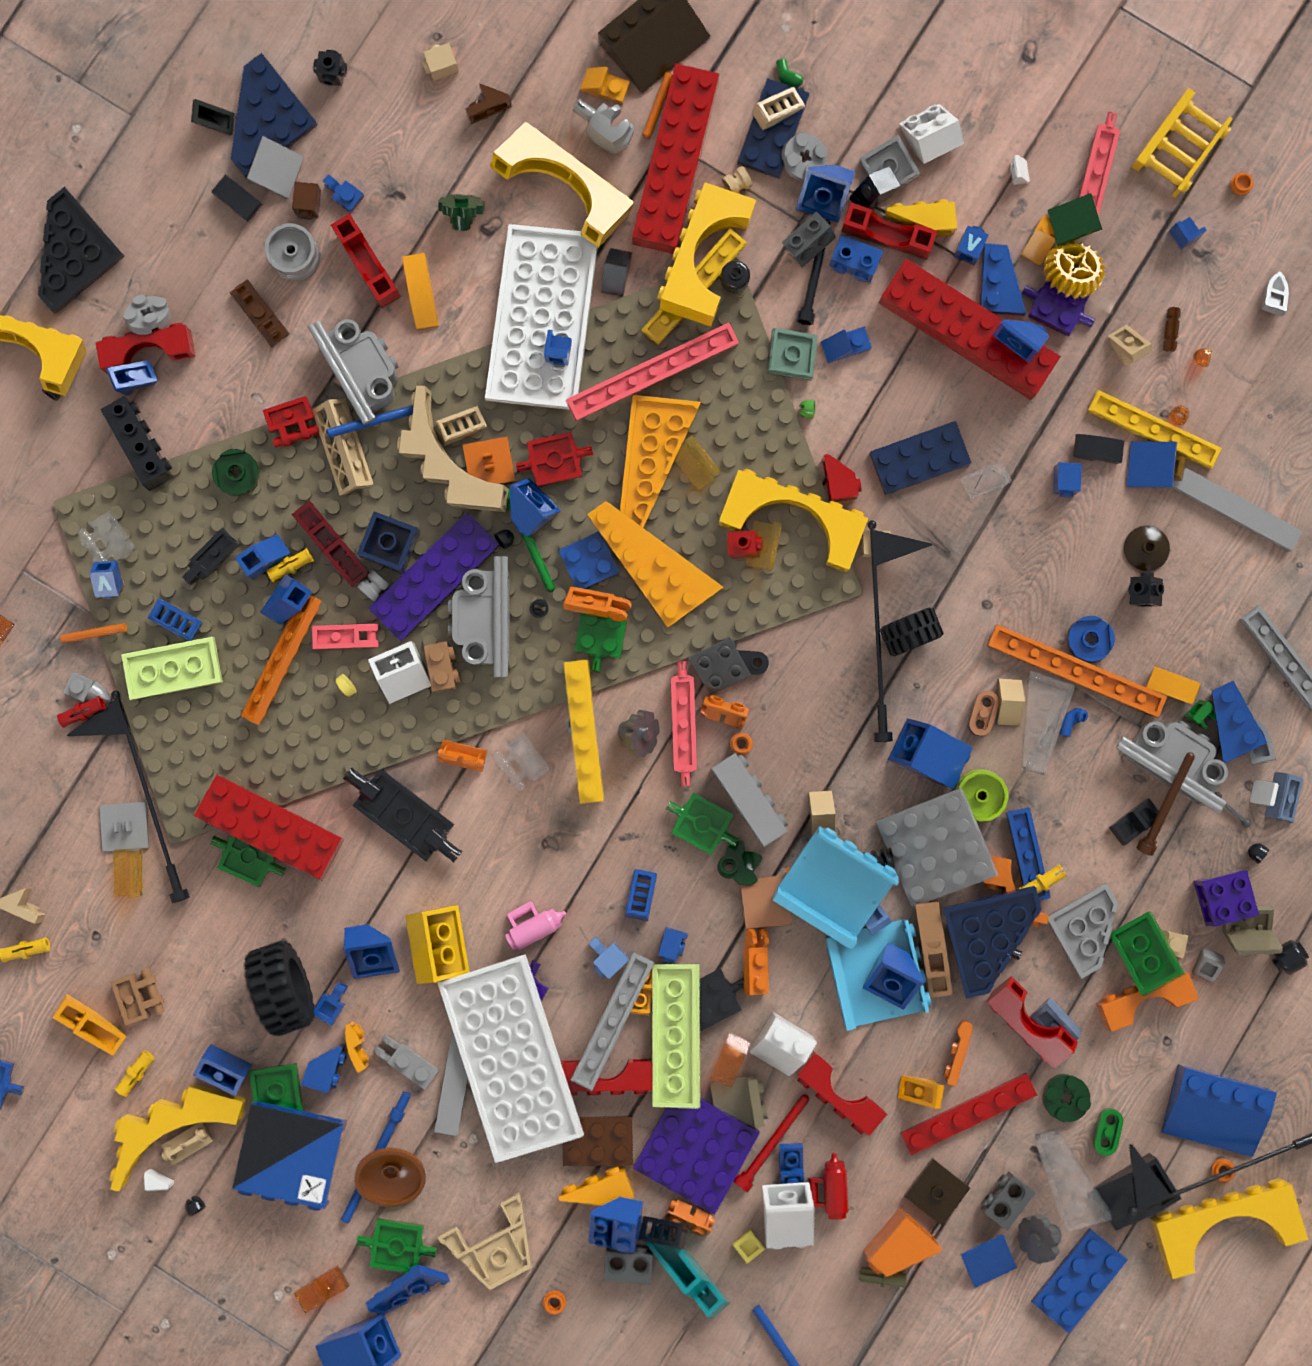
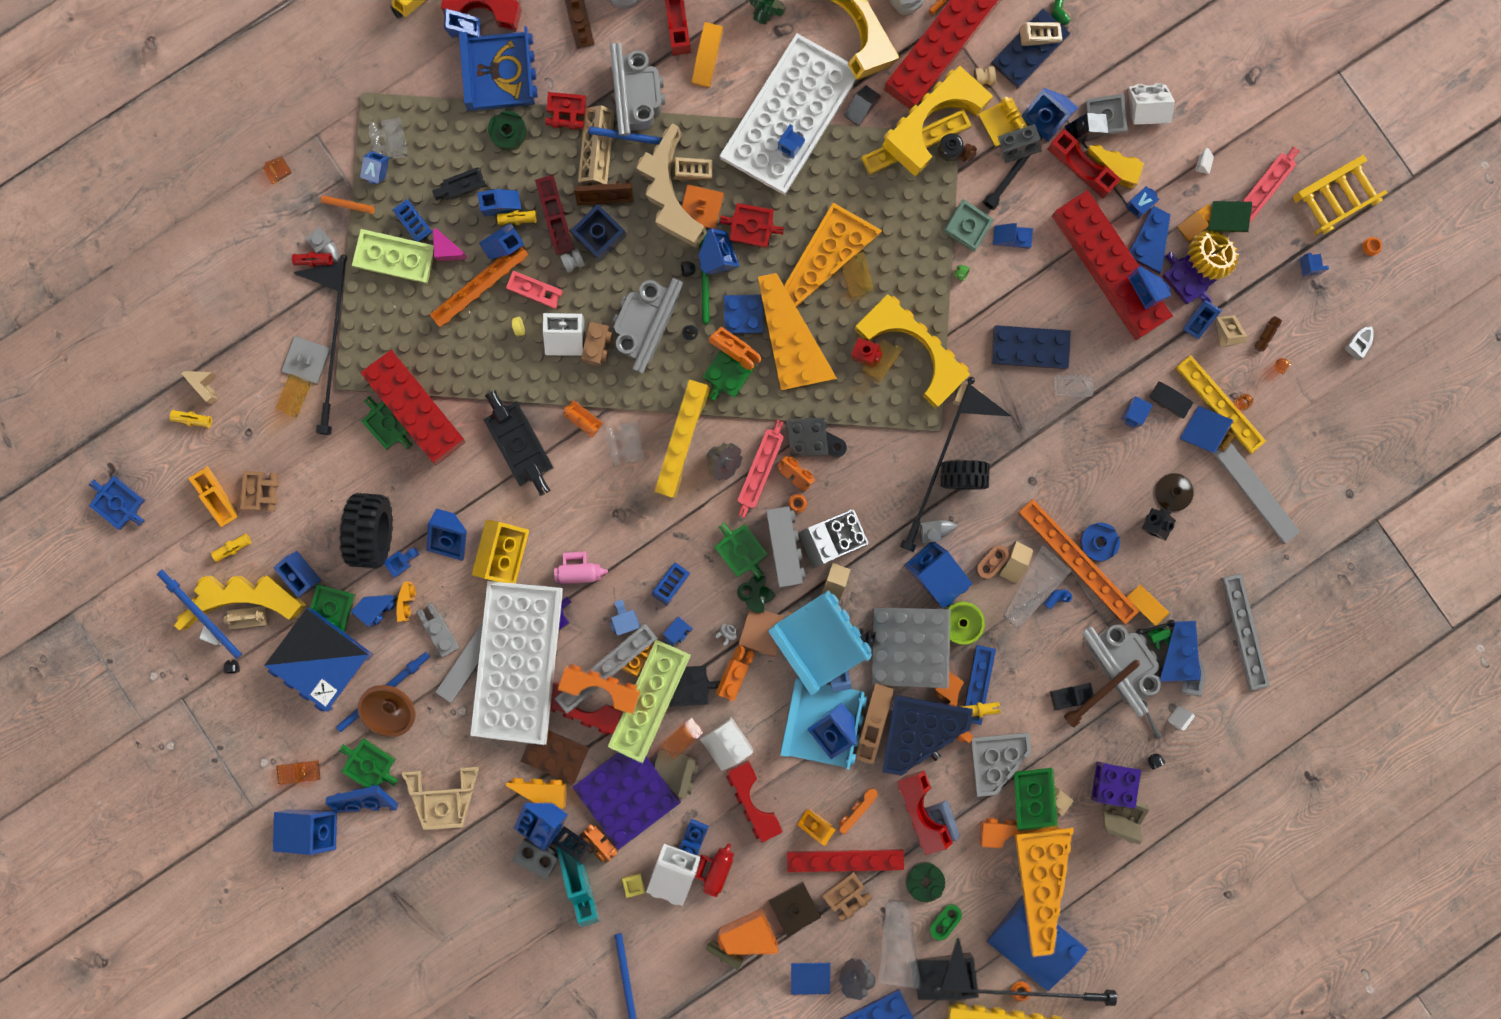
camera: 25 degrees right, 0 degrees up
(90, 1146) = (174, 587): none -> blue bar
(137, 443) = (443, 76): black brick -> none
(195, 410) = (498, 70): none -> blue panel
(226, 635) = (445, 249): none -> dark pink slope
(375, 496) = (604, 193): none -> reddish brown plate
(433, 576) = (621, 274): dark purple plate -> none
(551, 1309) = (462, 863): orange plate -> none
(585, 1050) = (575, 680): none -> orange arch
(652, 371) = (855, 191): coral plate -> none
(729, 920) = (728, 632): none -> light grey plate
(746, 1179) = (654, 833): red piece -> none
(757, 273) = (968, 152): none -> reddish brown plate
(777, 221) = (1002, 119): none -> yellow hinge
(797, 765) = (833, 538): none -> light grey slope
(799, 144) = (1045, 68): light grey plate -> none
(840, 480) = (962, 337): red slope -> none
(855, 259) = (1049, 174): blue brick -> none
(904, 707) = (934, 530): none -> light grey plate
(982, 1149) = (844, 891): none -> medium nougat plate
(1012, 1203) = (848, 943): dark grey brick -> none
(1092, 345) = (1201, 319): none -> blue slope
(1192, 1033) = (1043, 876): none -> light orange wing
(1206, 695) = (1170, 623): none -> black hinge
(1209, 964) = (1082, 830): light grey slope -> none
(1286, 797) = (1196, 729): sand blue slope -> none
(1292, 957) = (1145, 853): black head -> none

